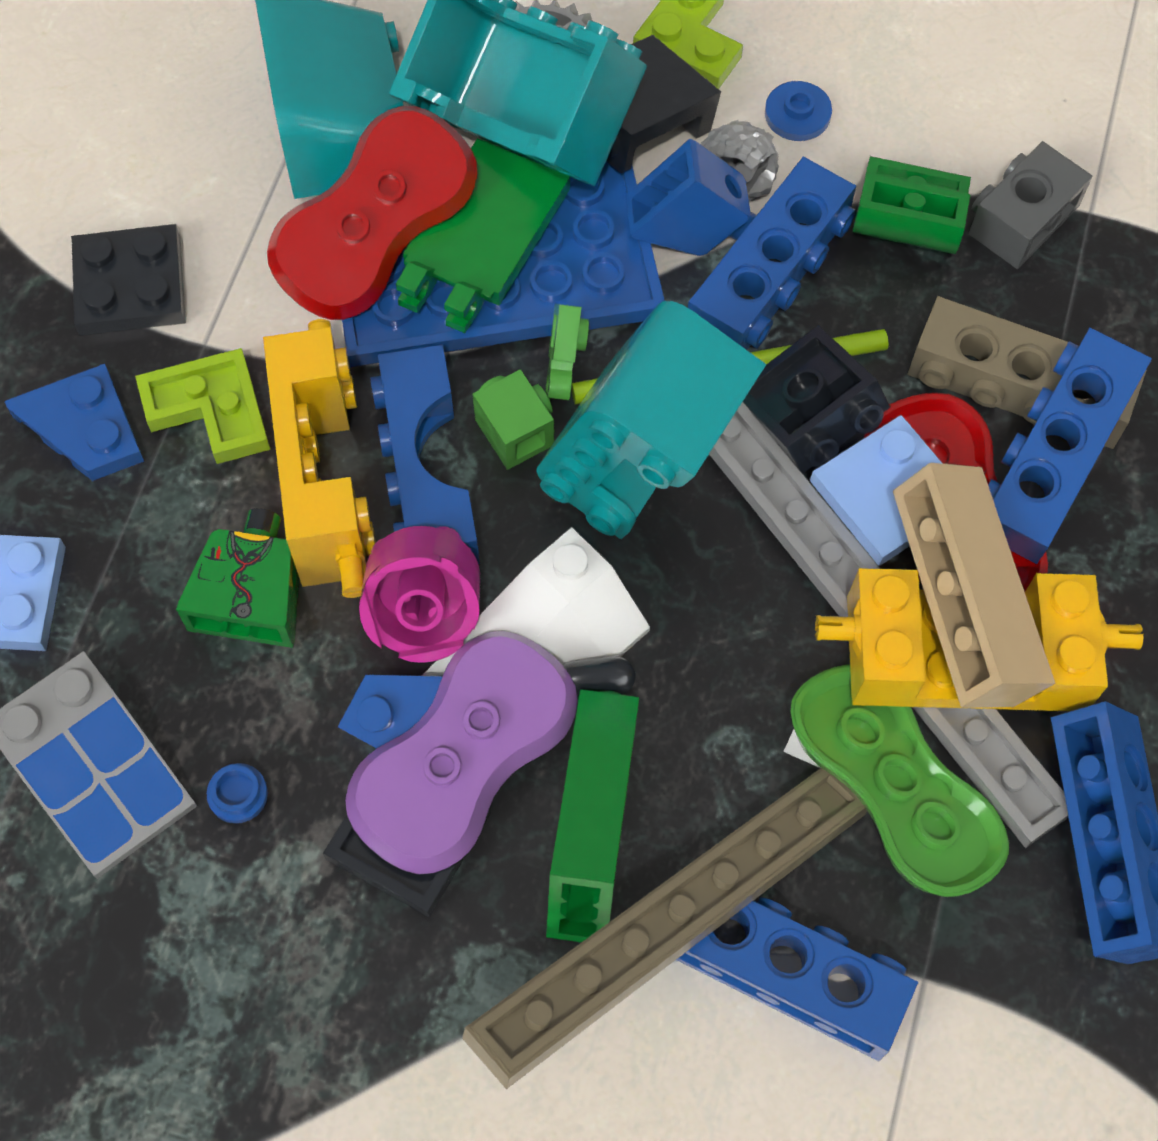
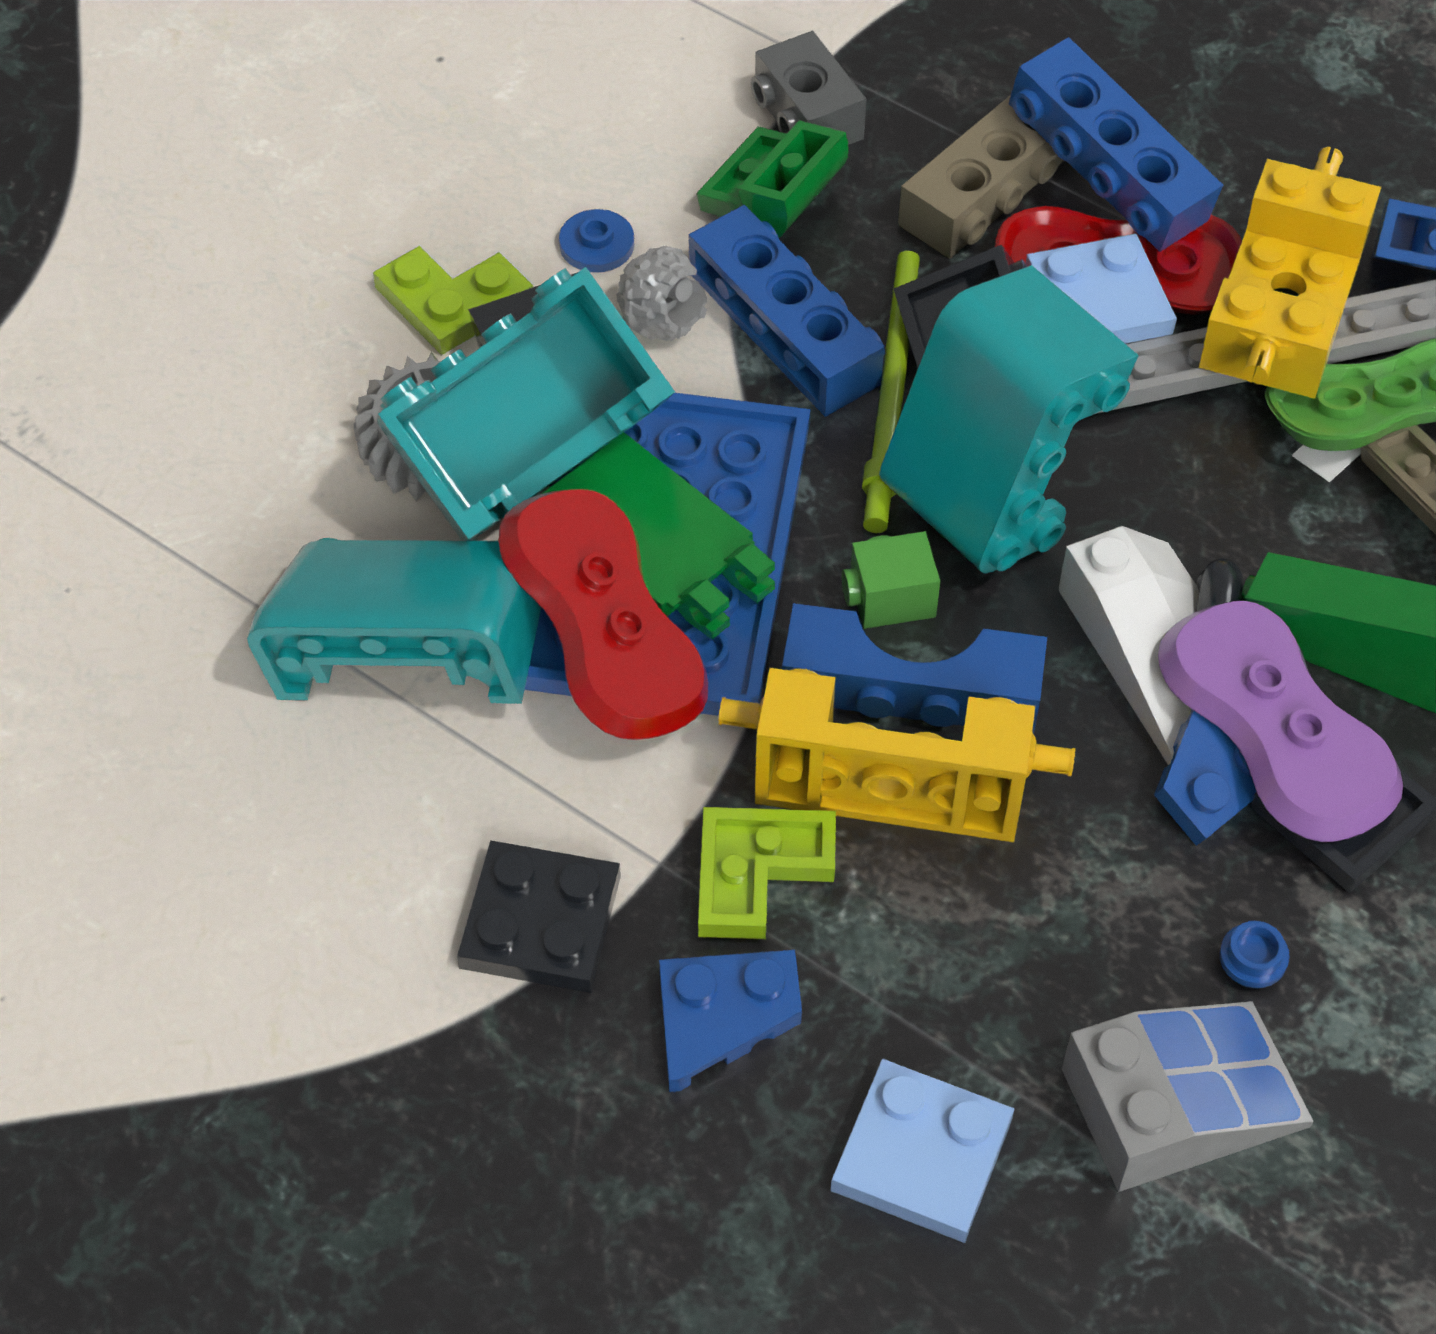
camera: 70 degrees left, 10 degrees down
(244, 585) = (1010, 877): green torso -> none
(420, 593) = (1099, 695): dark pink brick -> none
(567, 336) = (830, 500): bright green plate -> none
(689, 202) = (706, 336): blue torso -> none
(972, 587) = (1257, 241): tan brick -> none

